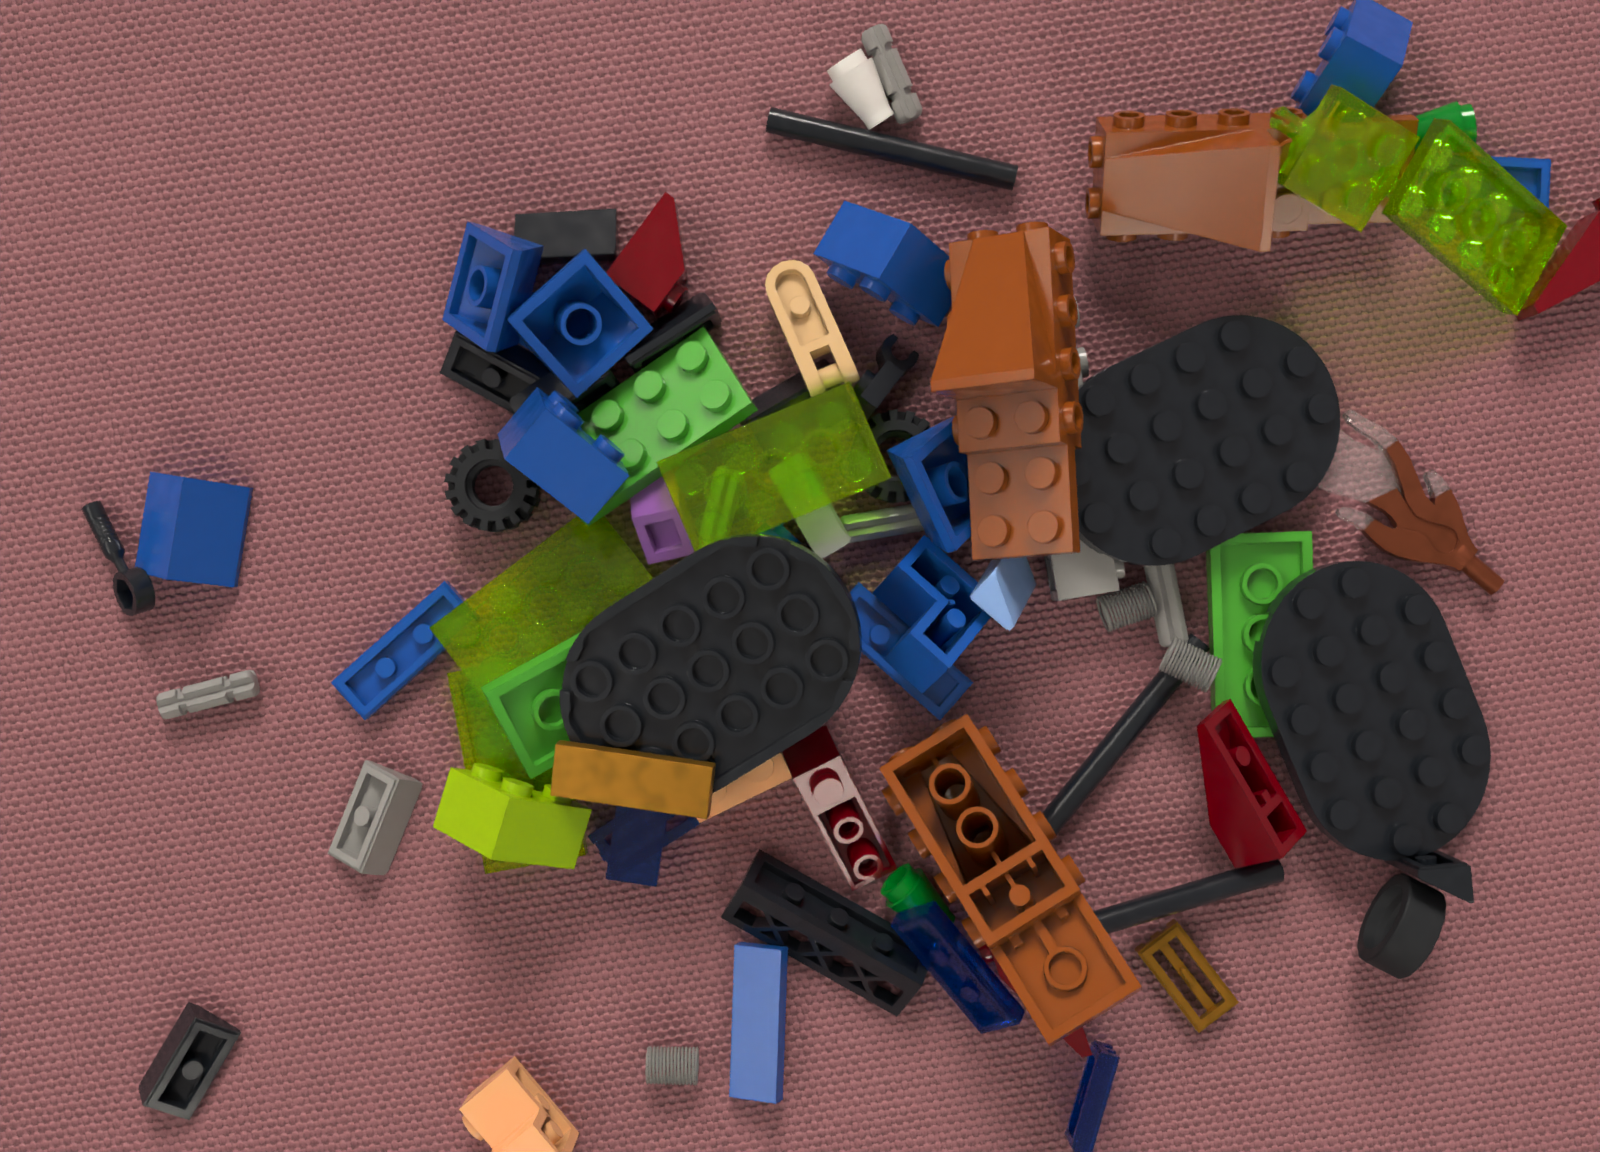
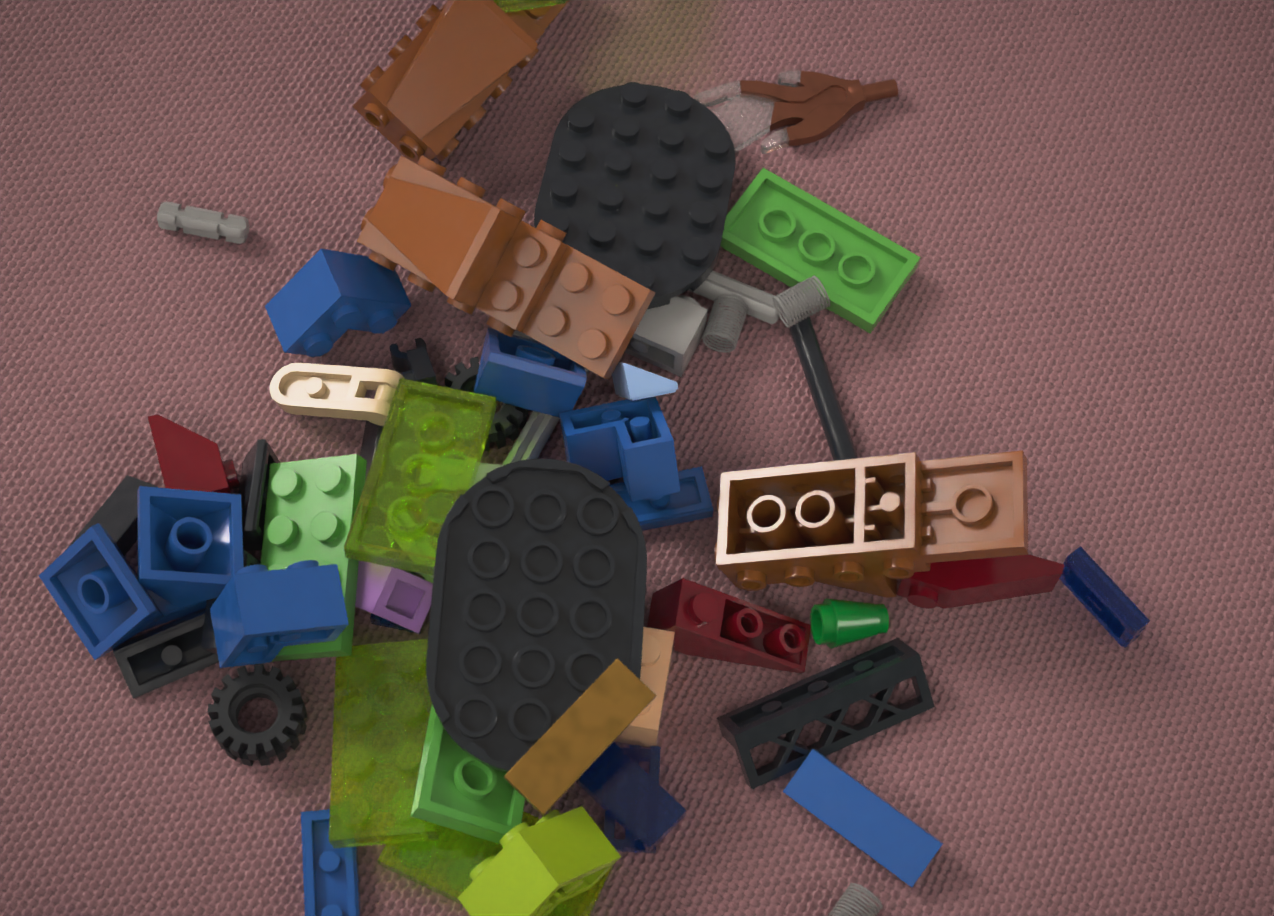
camera: 60 degrees left, 25 degrees down
(860, 88) = (194, 246): white cone -> none
(891, 148) = (254, 259): black piece -> none
(957, 967) = (923, 621): clear blue tile -> none
(1160, 941) = (1060, 488): pearl gold tile -> none
(1189, 895) = (989, 402): black piece -> none
(1243, 793) = (937, 331): dark red slope -> none
(1372, 710) = (927, 213): black plate -> none
(1401, 926) = (1107, 289): black tyre -> none
(1440, 871) = (1081, 241): black slope -> none

